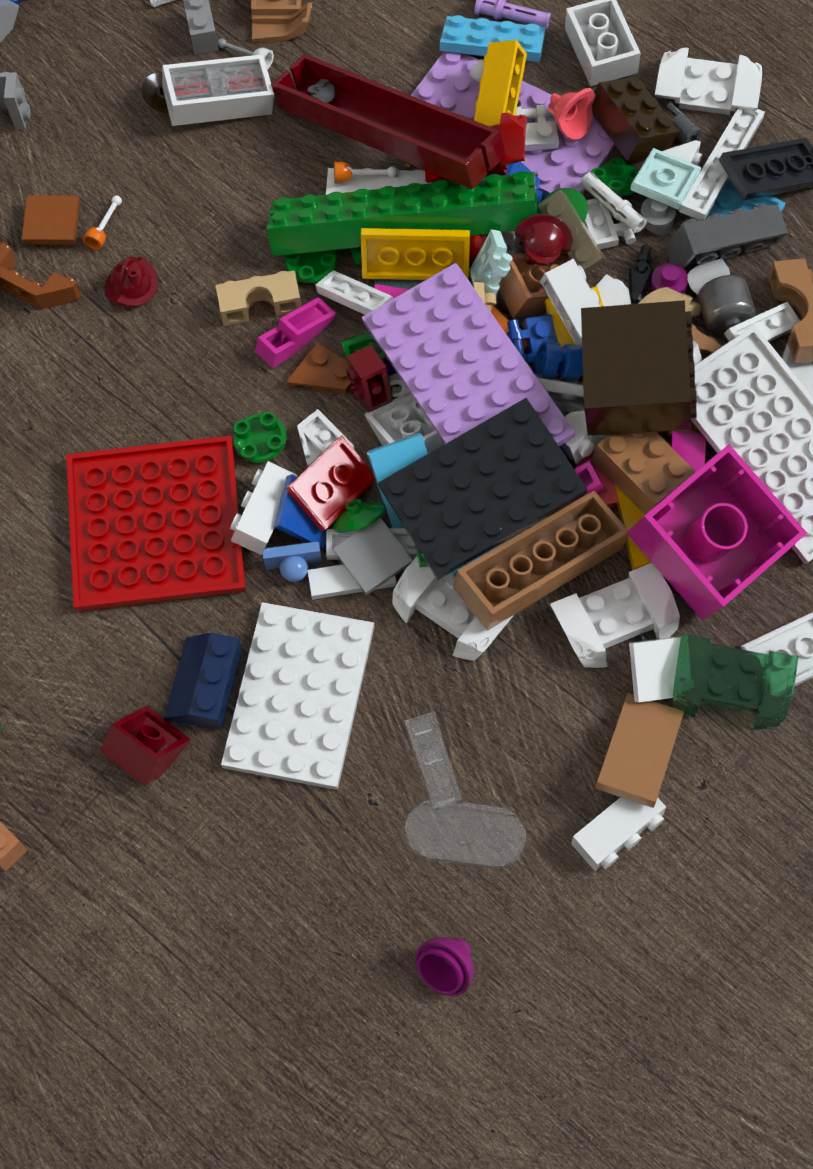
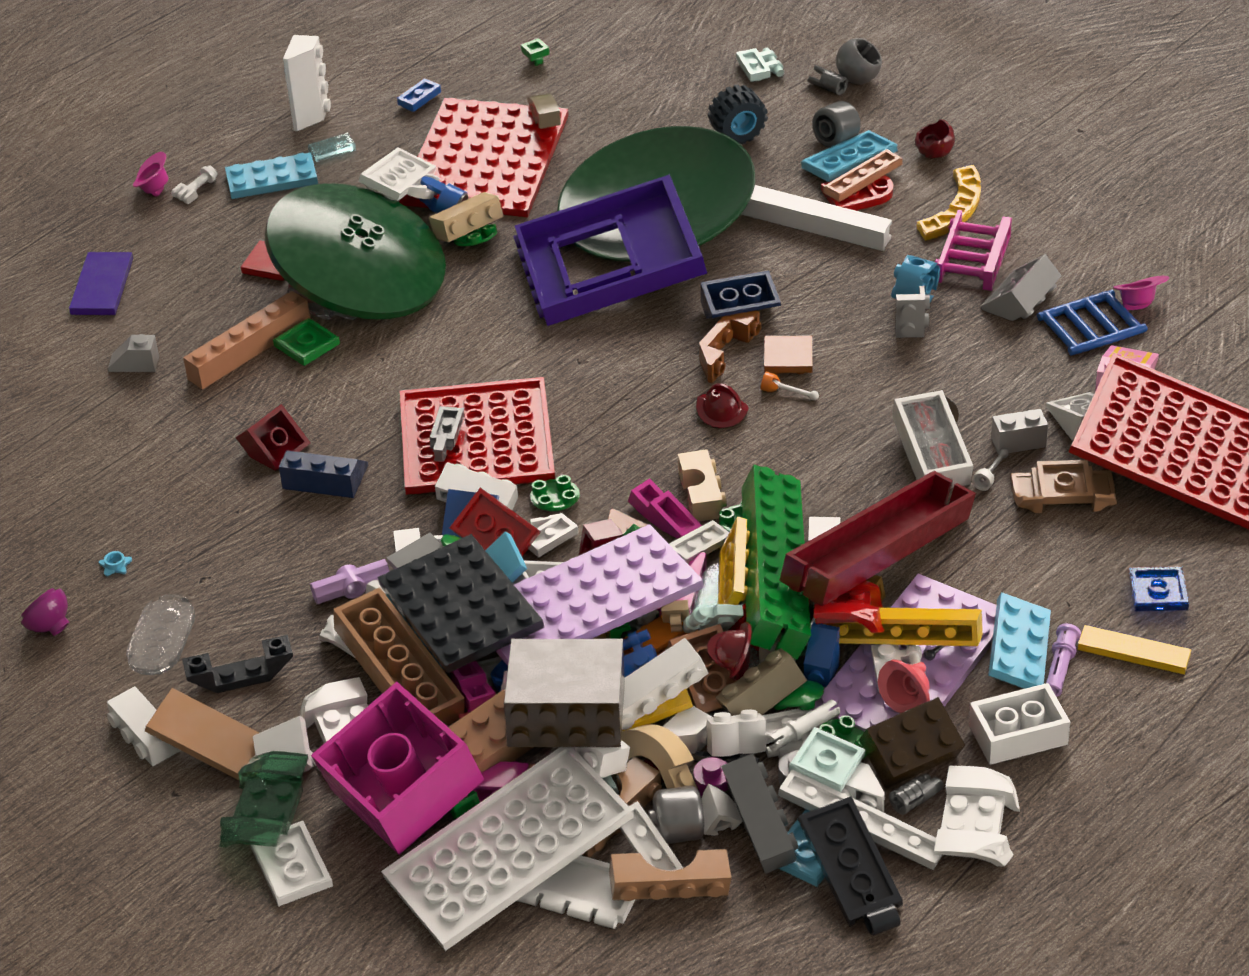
camera: 90 degrees right, 25 degrees down
(163, 544) = (445, 431): none -> hinge
(292, 559) = (425, 517): medium blue tile -> none
(298, 696) = (303, 529): white plate -> none
(322, 90) = (922, 506): dark grey piece -> none
(340, 899) = (115, 563): none -> medium azure plate
(344, 172) = (823, 520): hinge -> none
(393, 632) = (348, 581): none -> lavender piece
(433, 761) = (225, 605): clear slope -> none
(519, 706) = (241, 673): none -> black slope
(623, 258) = (736, 734): none -> white brick

